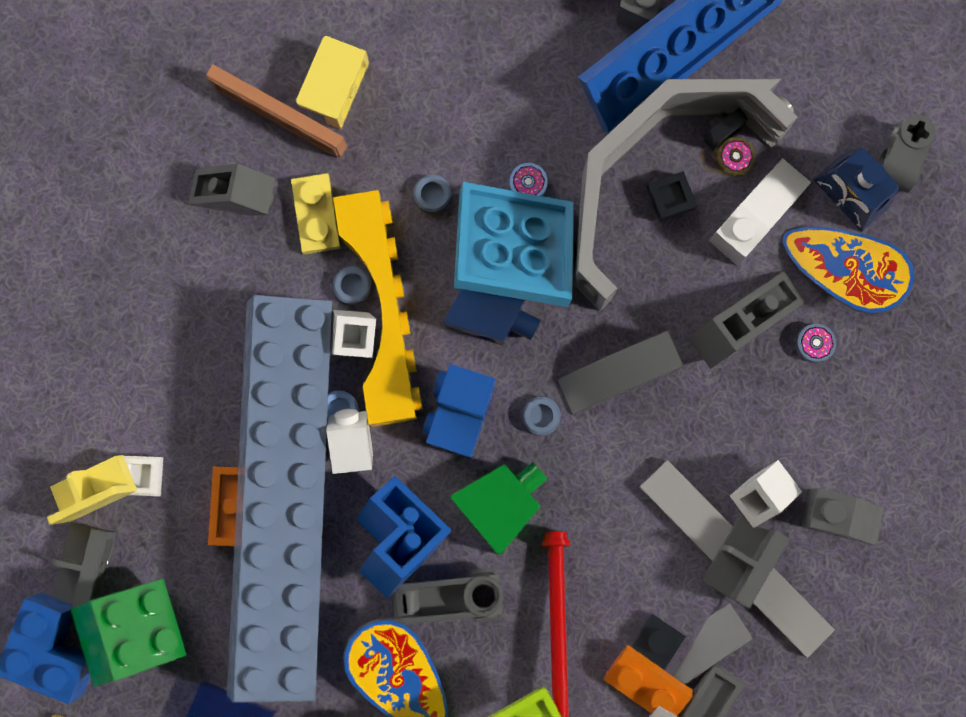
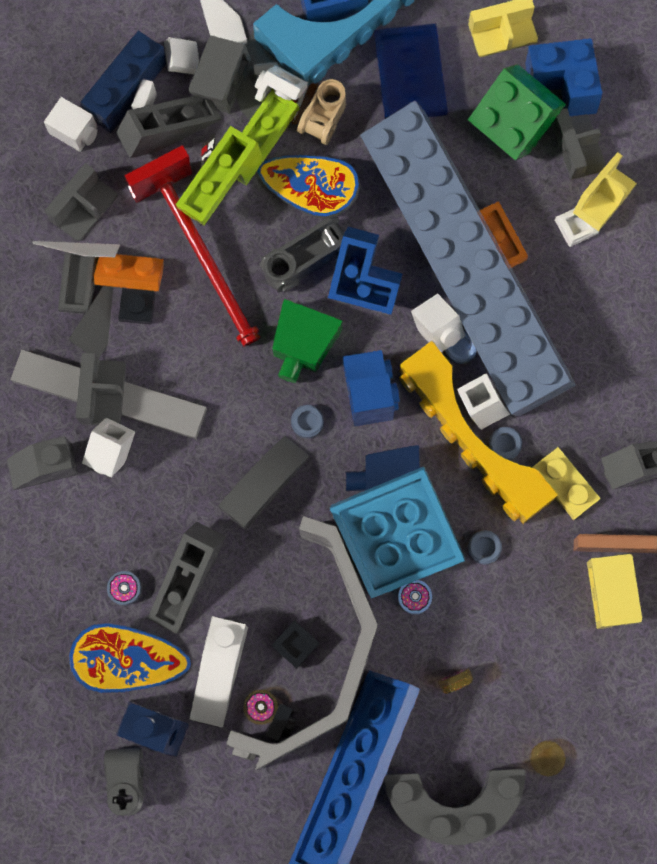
camera: 155 degrees right, 5 degrees down
(533, 81) = (456, 681): none -> clear yellow tile

